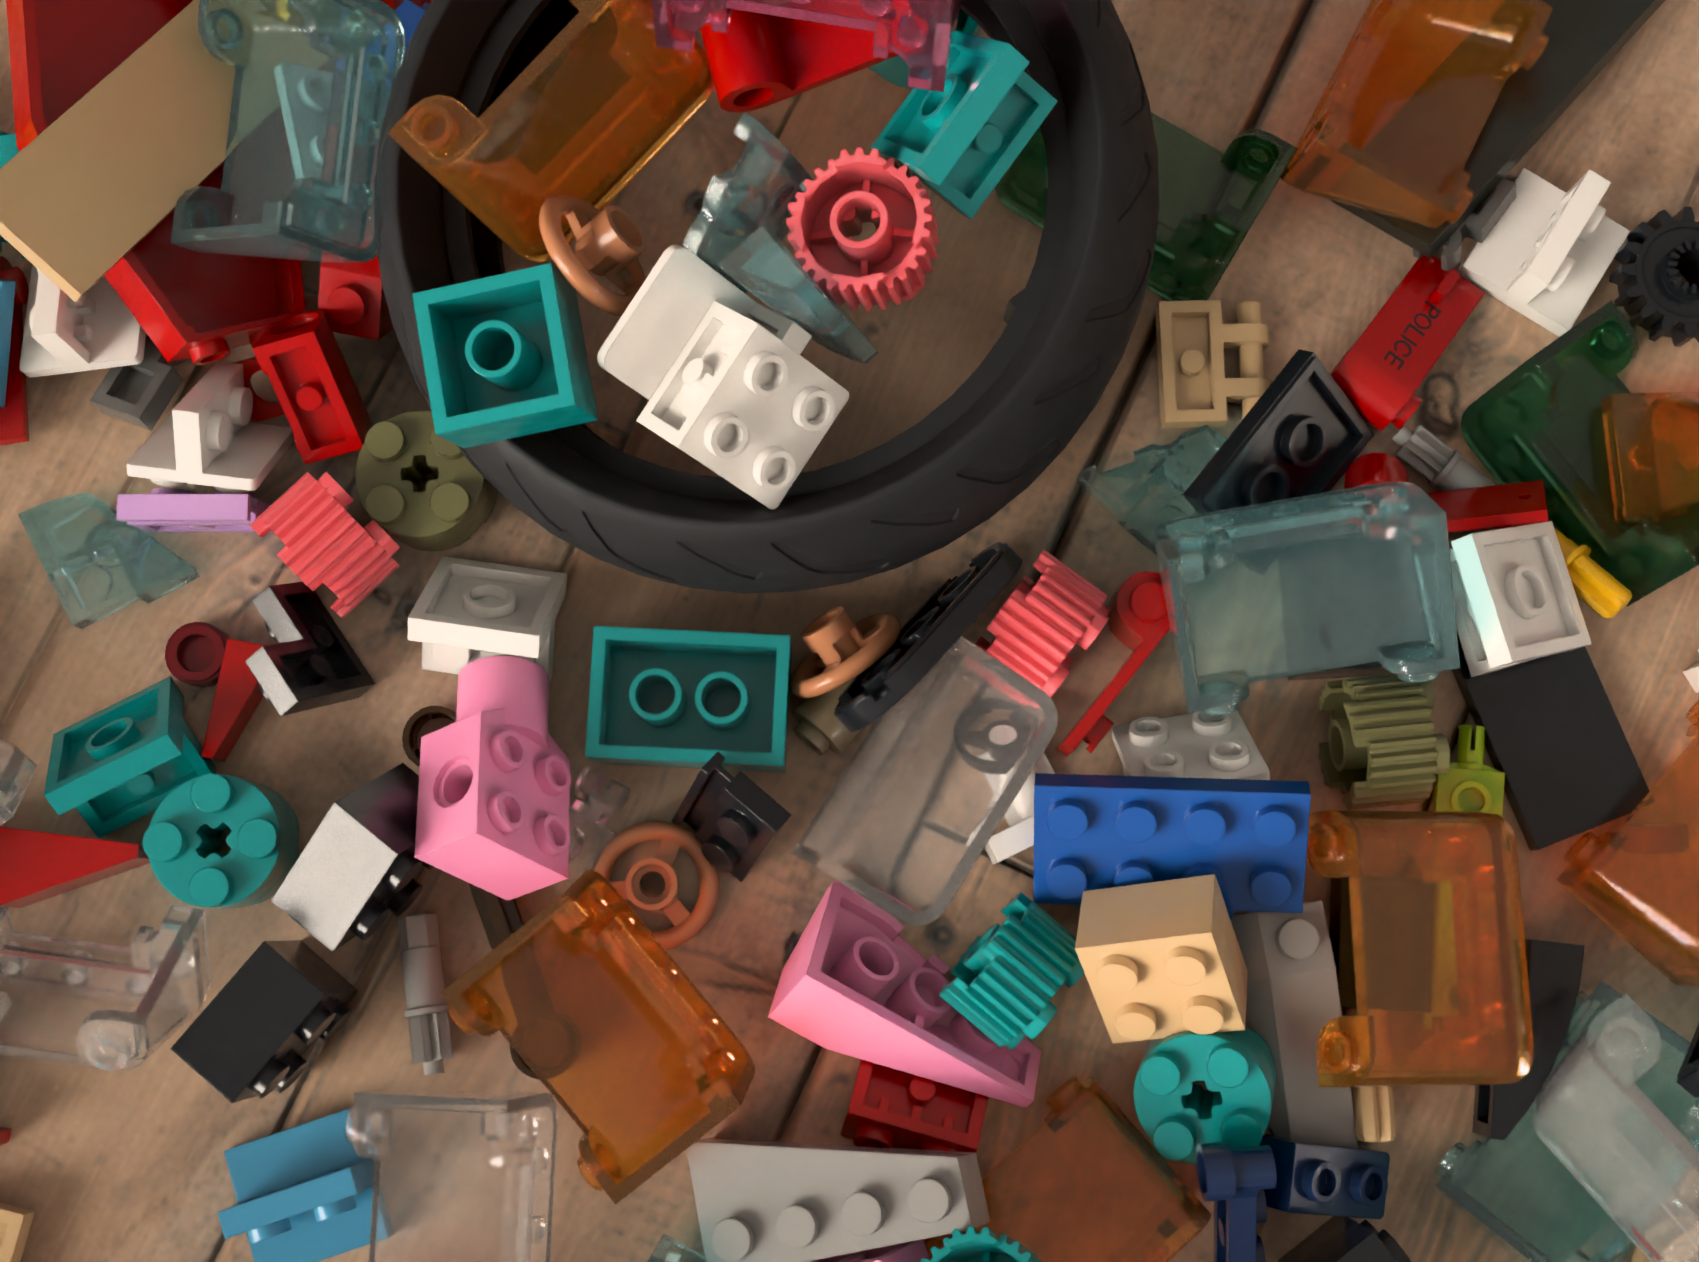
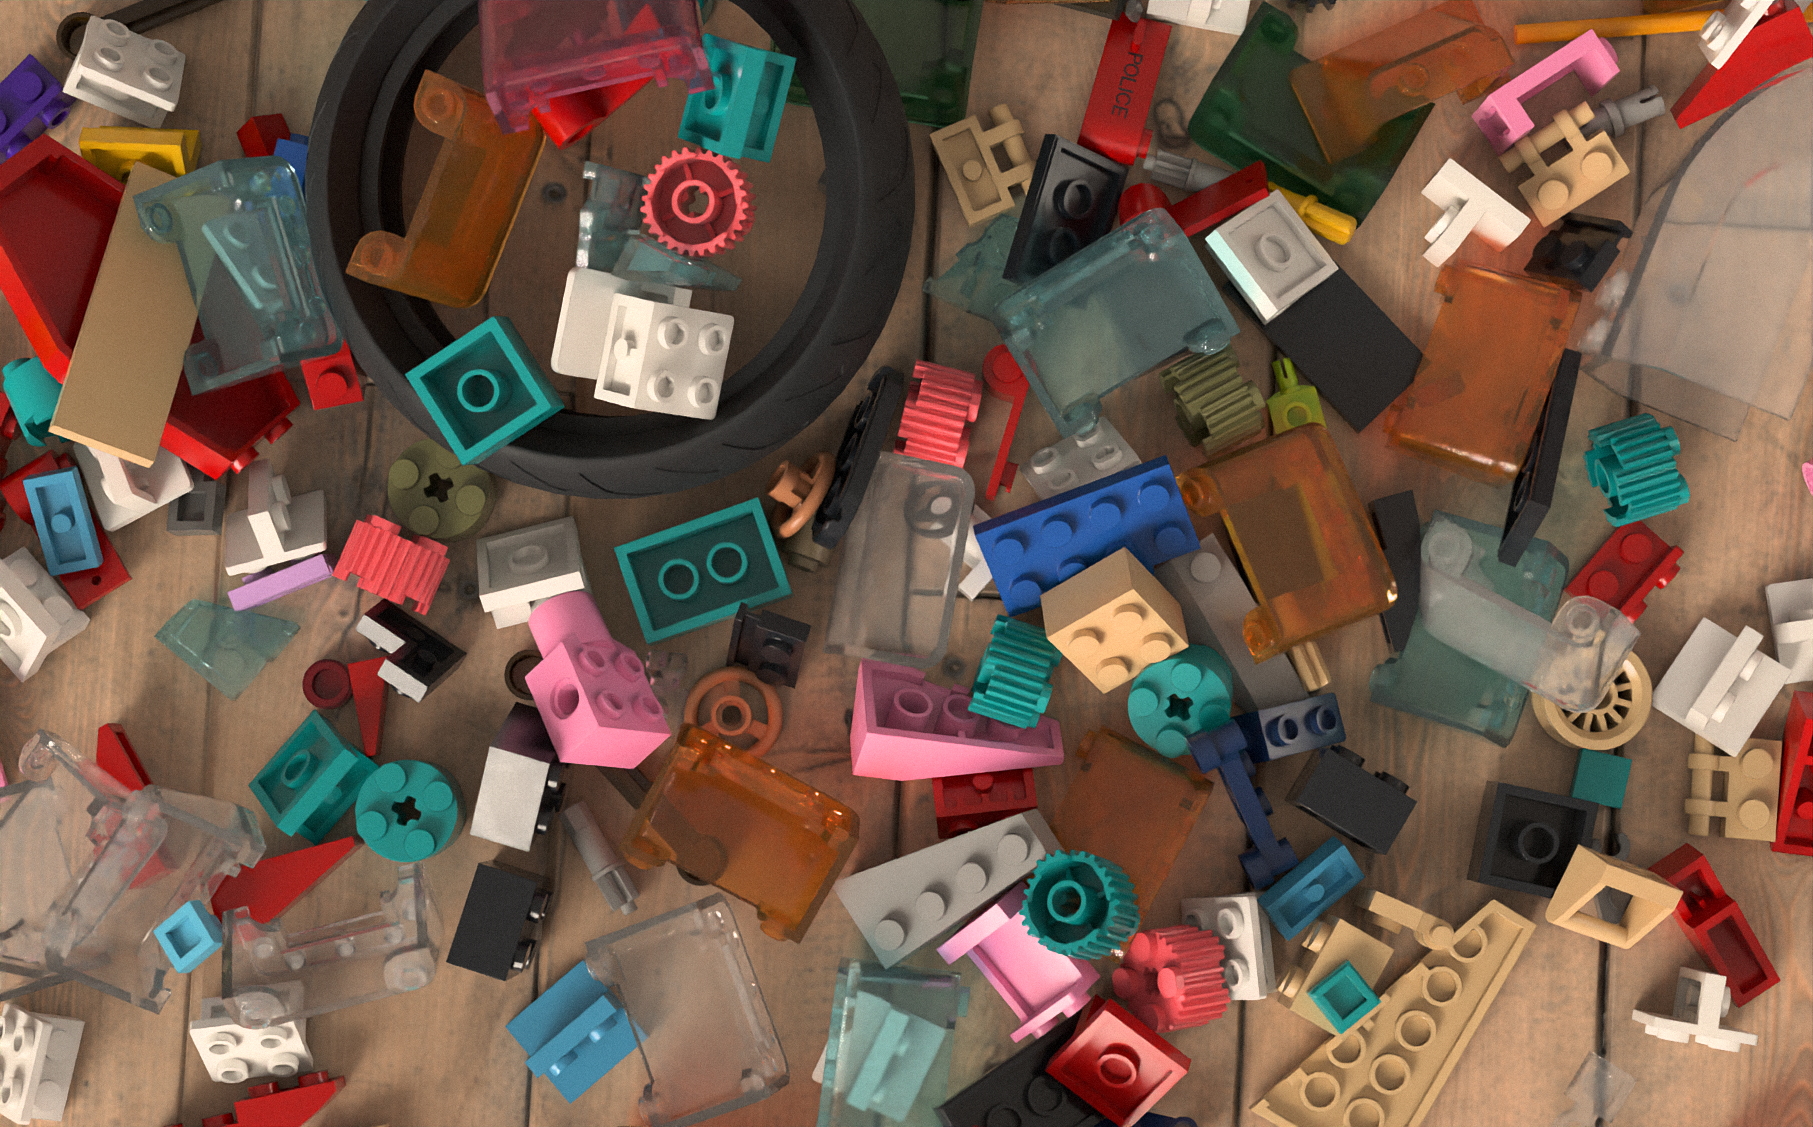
camera: 15 degrees left, 5 degrees up
(310, 385) = (330, 454): red piece -> none
(604, 245) = (521, 283): nougat piece -> none

